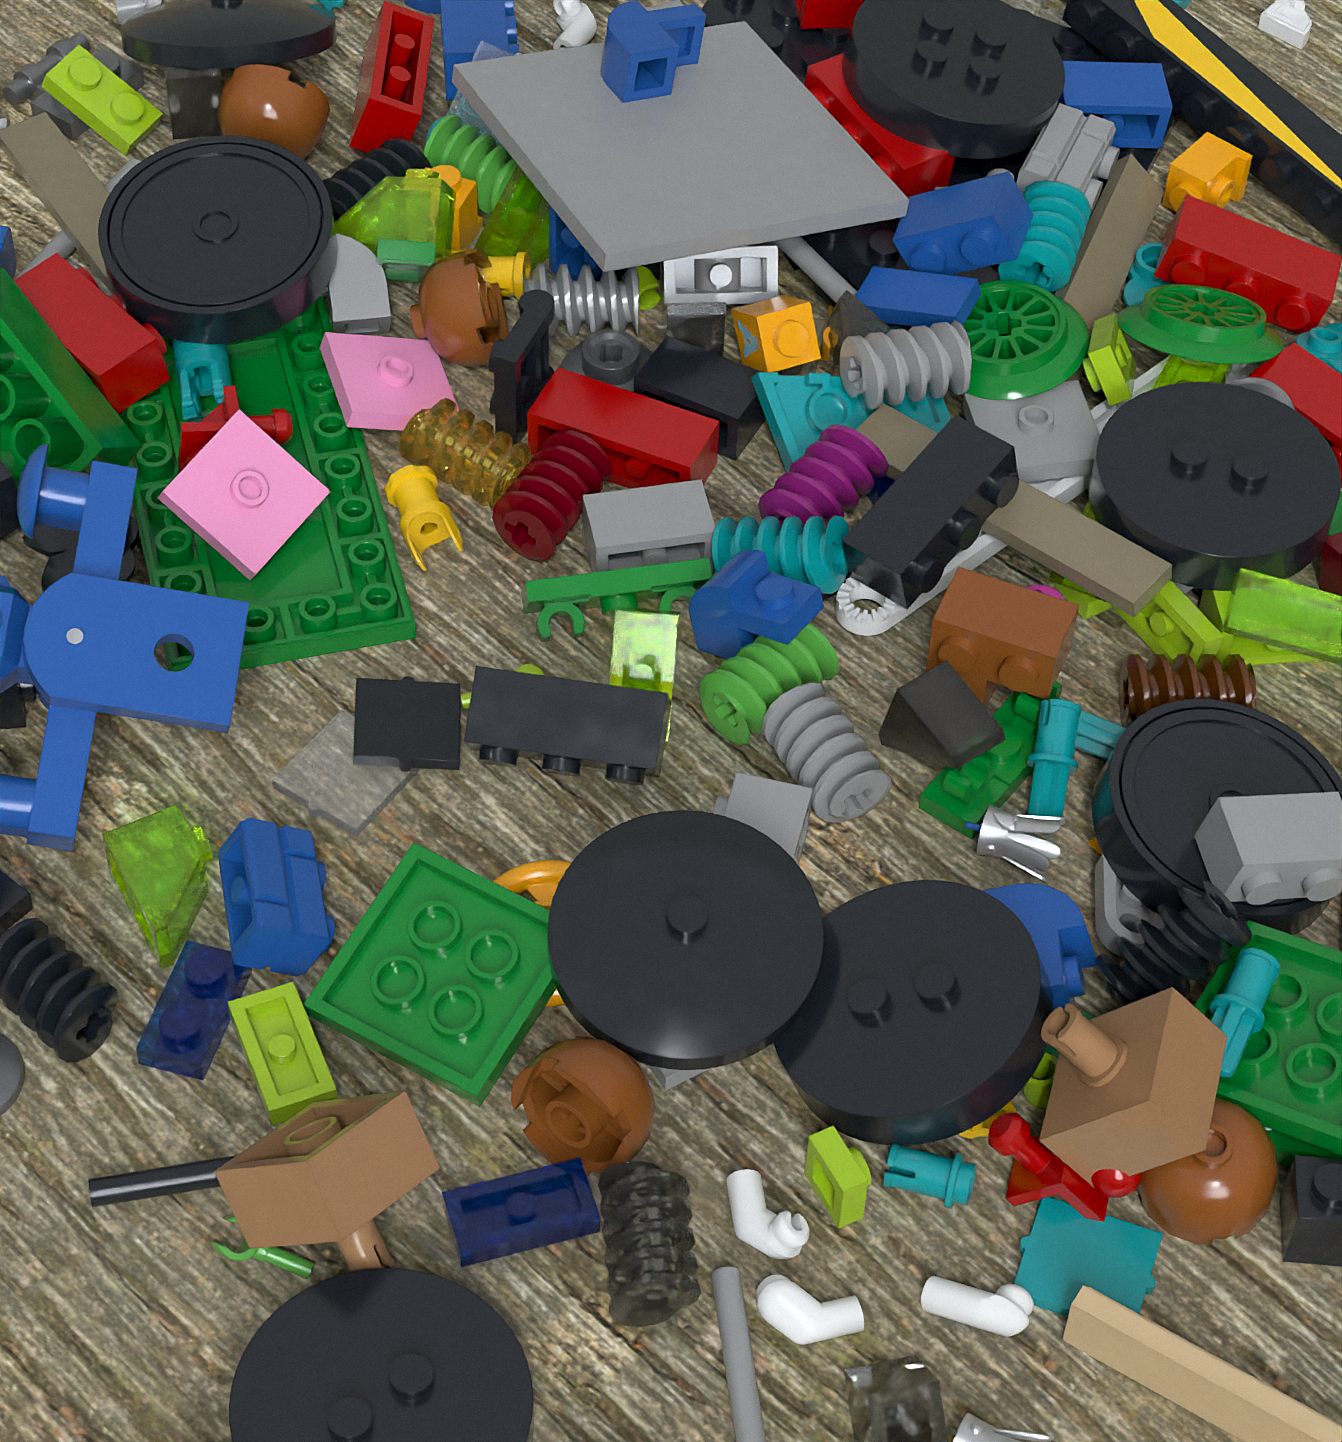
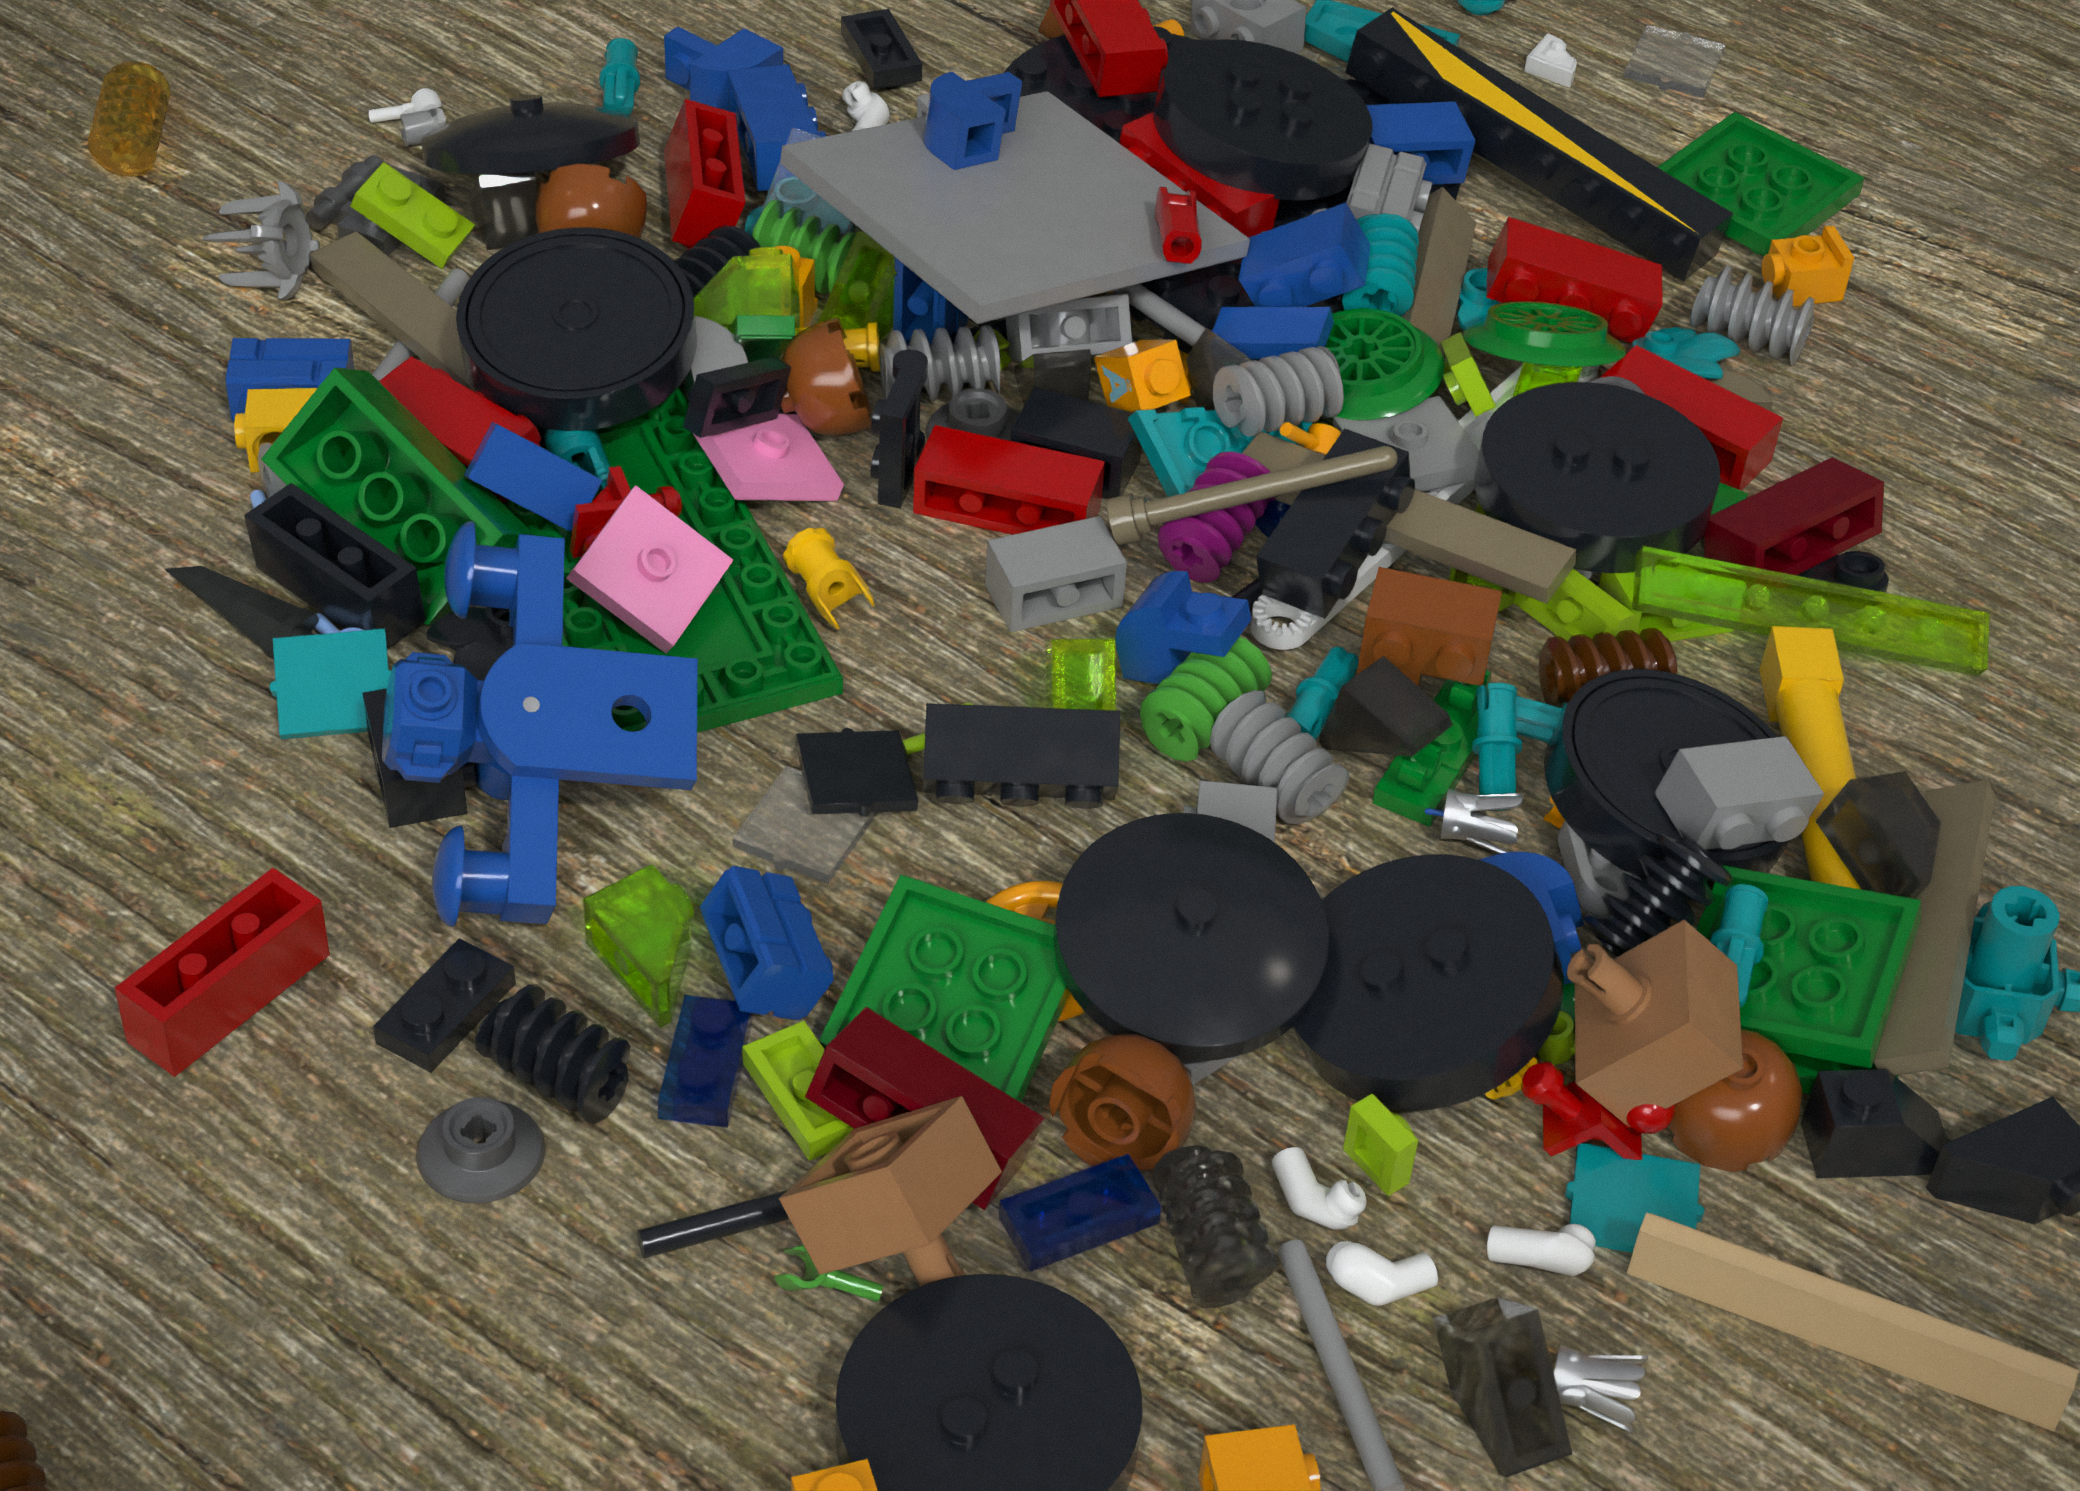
camera: 10 degrees left, 5 degrees down
(145, 388) = (531, 476): none -> blue tile
(353, 1050) = (884, 1071): none -> dark red brick
(364, 322) = (736, 396): none -> black plate
(463, 451) = (860, 517): clear yellow piece -> none
(550, 493) = (951, 545): dark red piece -> none
(610, 590) = (1030, 628): green plate -> none
(732, 485) = (1135, 516): none -> dark tan piece
(792, 550) = (1224, 574): teal piece -> none
(833, 182) = (1178, 225): none -> red bar
(879, 688) = (1318, 693): none -> teal axle
(931, 1174) = (1473, 1135): teal pin -> none
(938, 417) = (1318, 438): none -> light orange hand
(1209, 172) = (1515, 195): light orange brick -> none

